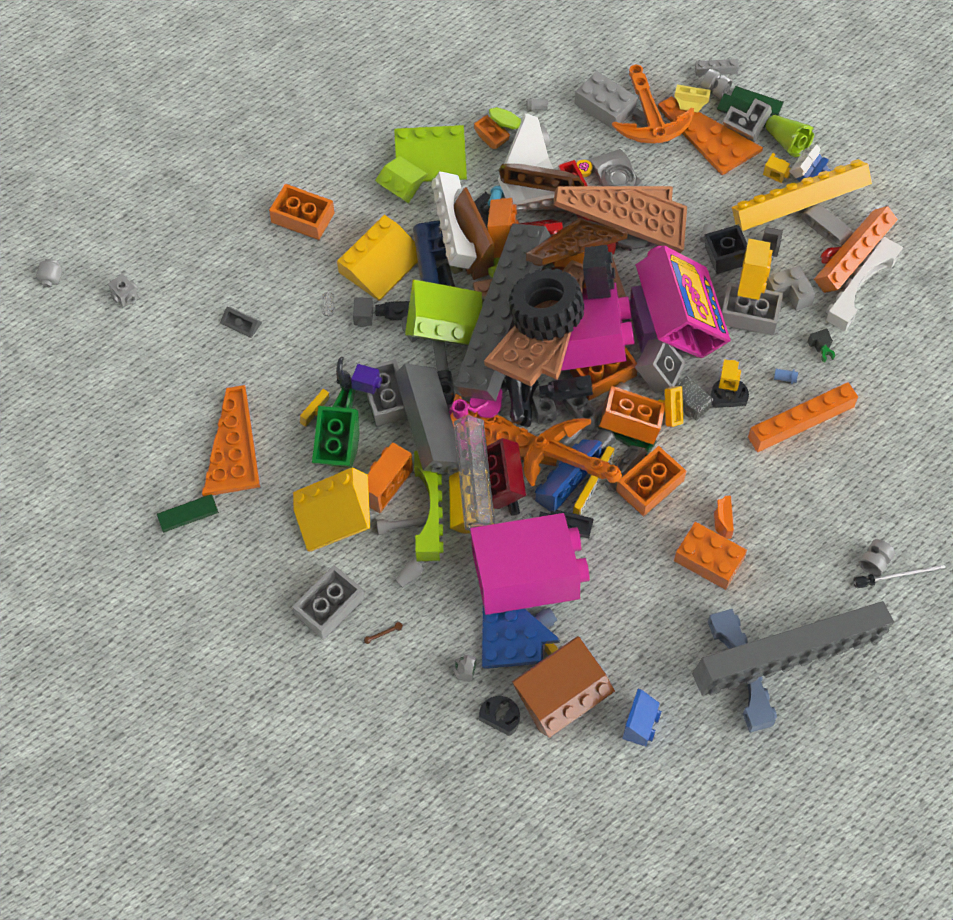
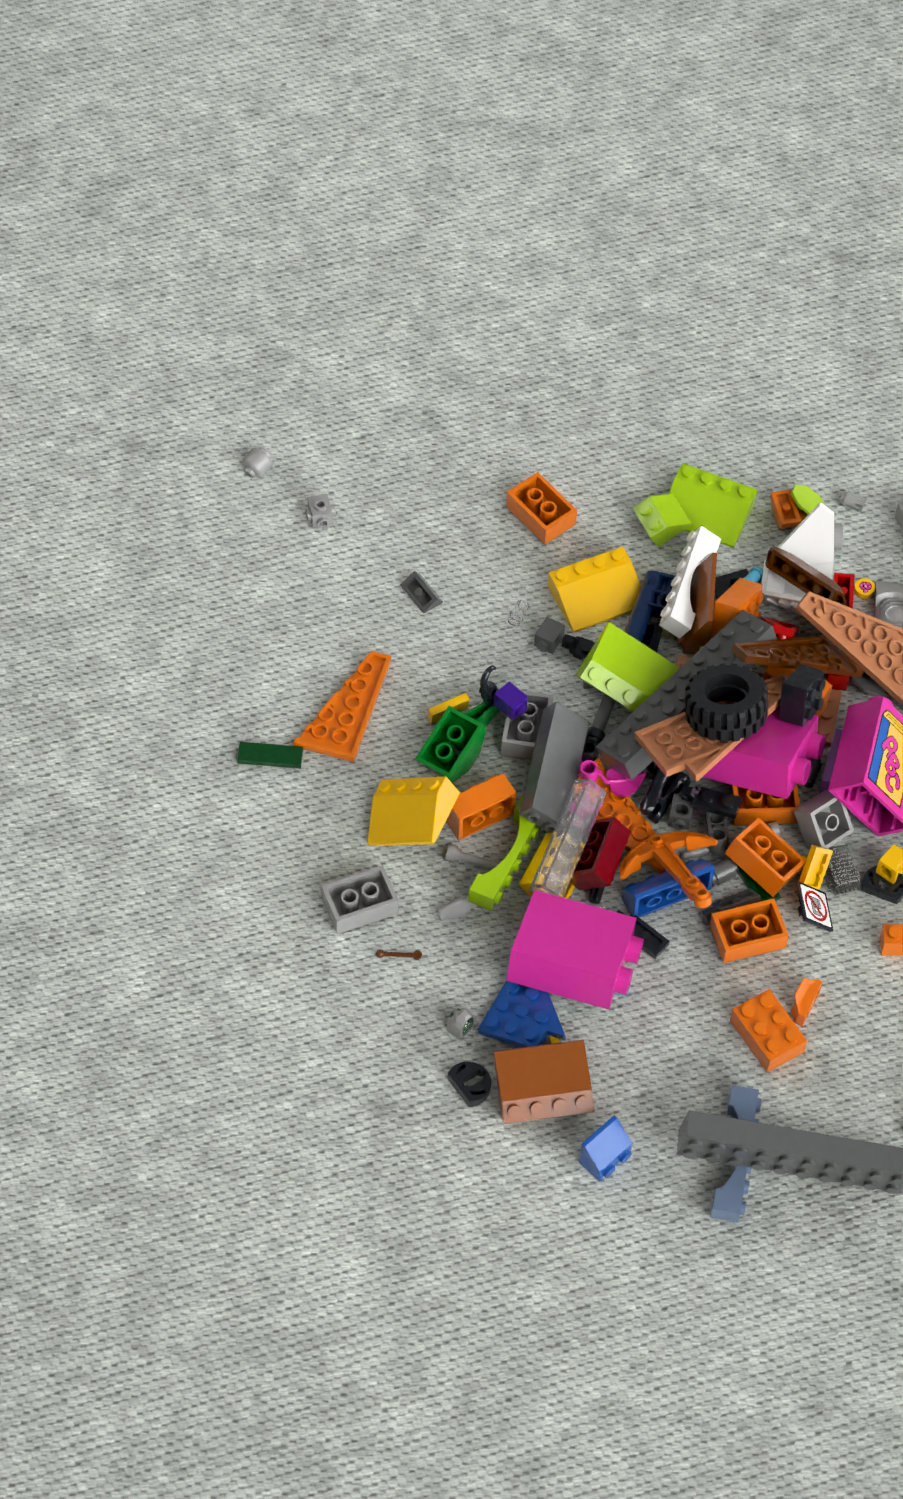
camera: 25 degrees right, 5 degrees down
(546, 617) = (566, 1013): sand blue cone -> none
(591, 485) = (687, 907): yellow tile -> none
(688, 438) = (814, 906): none -> piece

